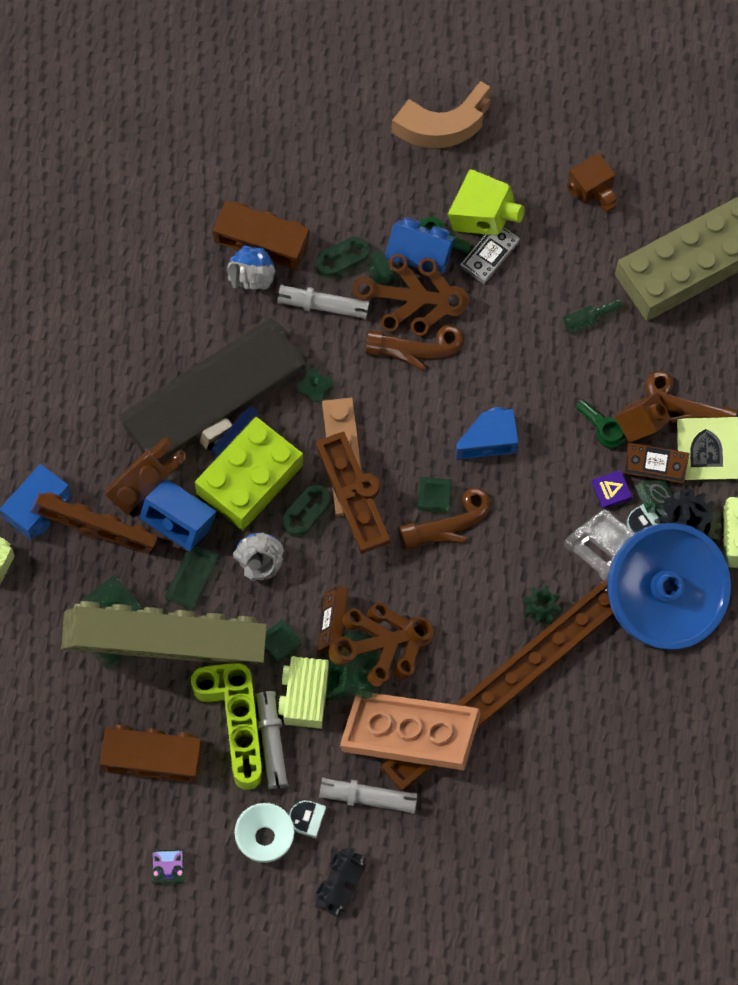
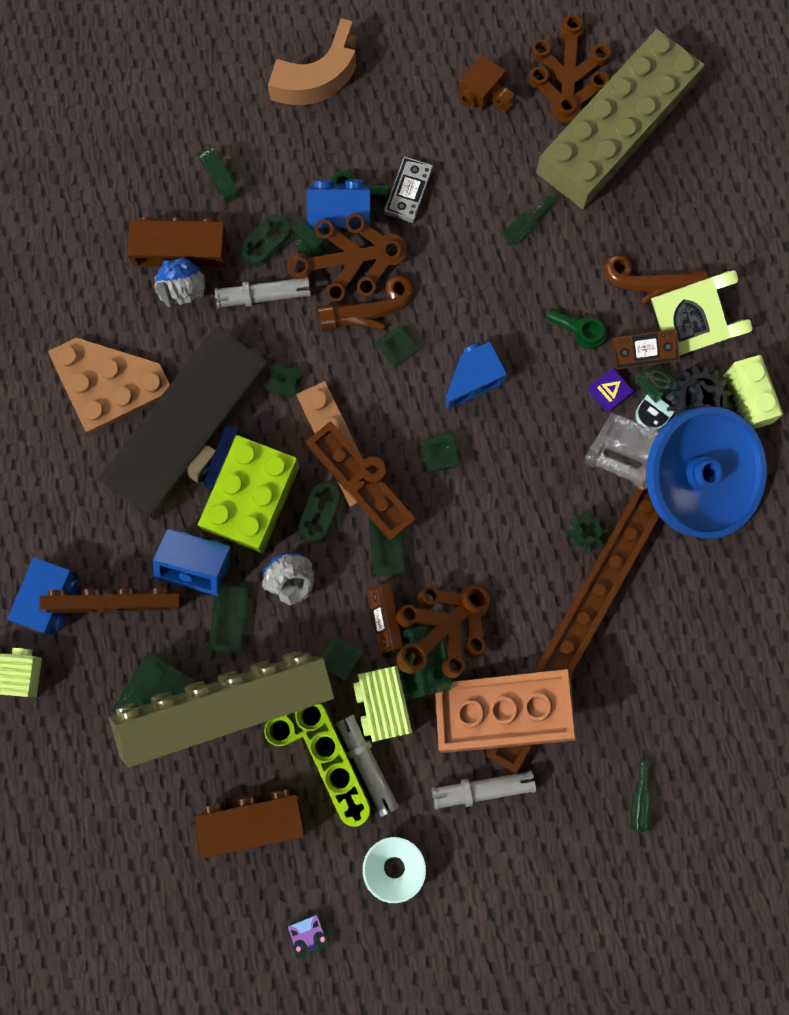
camera: 15 degrees left, 10 degrees up
(143, 476) = (144, 534): reddish brown hinge -> none
(154, 336) = (106, 381): none -> medium nougat plate
(307, 817) = (430, 833): tile -> none
(319, 185) = (218, 174): none -> clear green beam
(344, 869) = (484, 907): black hinge -> none
(354, 566) = (386, 555): none -> clear green tile
(429, 388) = (397, 346): none -> clear green tile
(446, 528) = (463, 484): reddish brown plant -> none
(483, 205) = (387, 143): lime torso -> none
(508, 853) = (641, 801): none -> clear green axle
(643, 417) = (619, 307): reddish brown brick -> none
(677, 195) = (568, 74): none -> reddish brown plant

